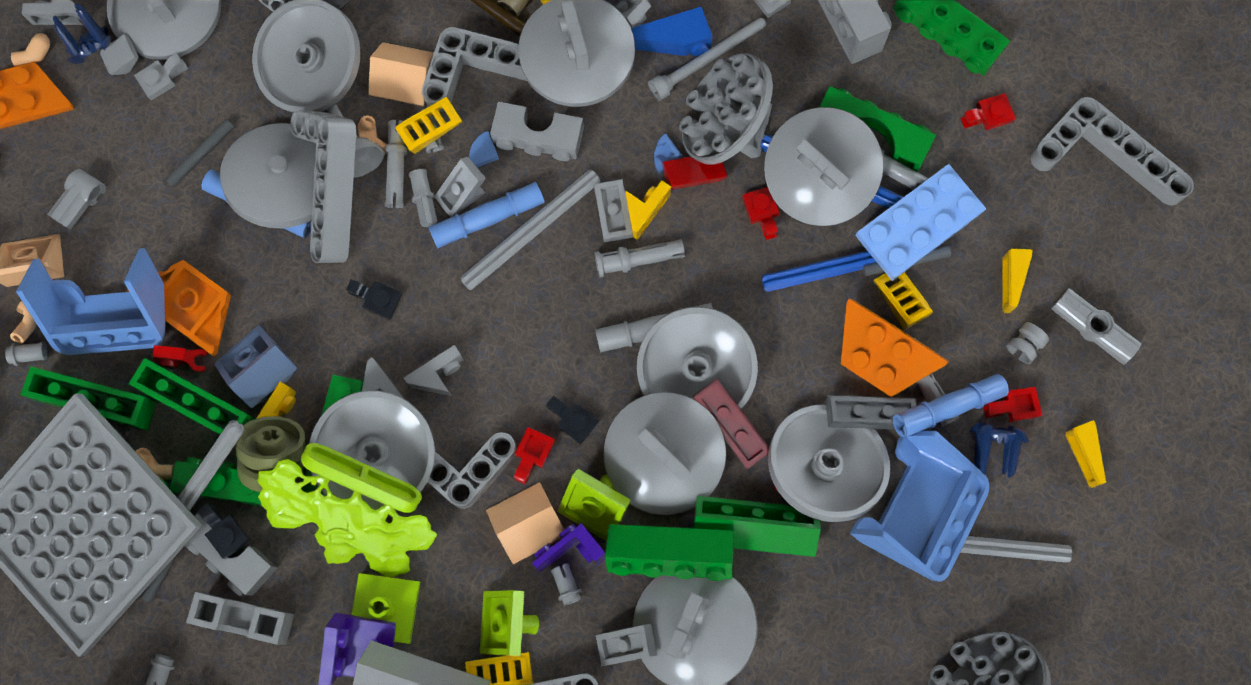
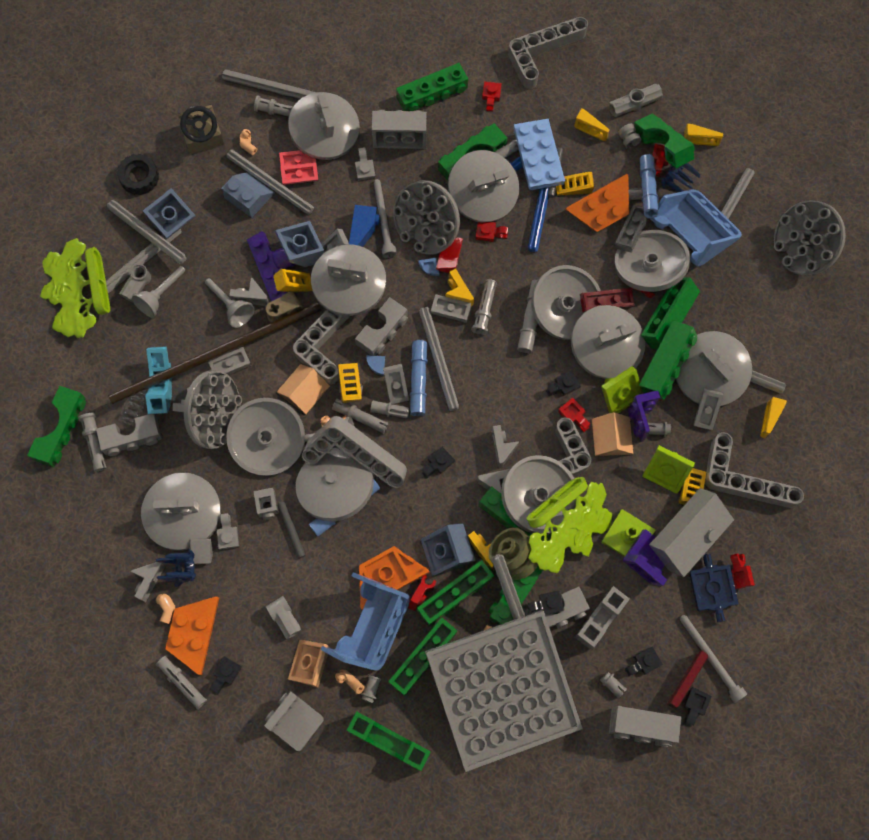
camera: 70 degrees left, 5 degrees down
(213, 95) = (261, 498): none -> light grey brick
(1027, 417) = (677, 148): none -> green arch

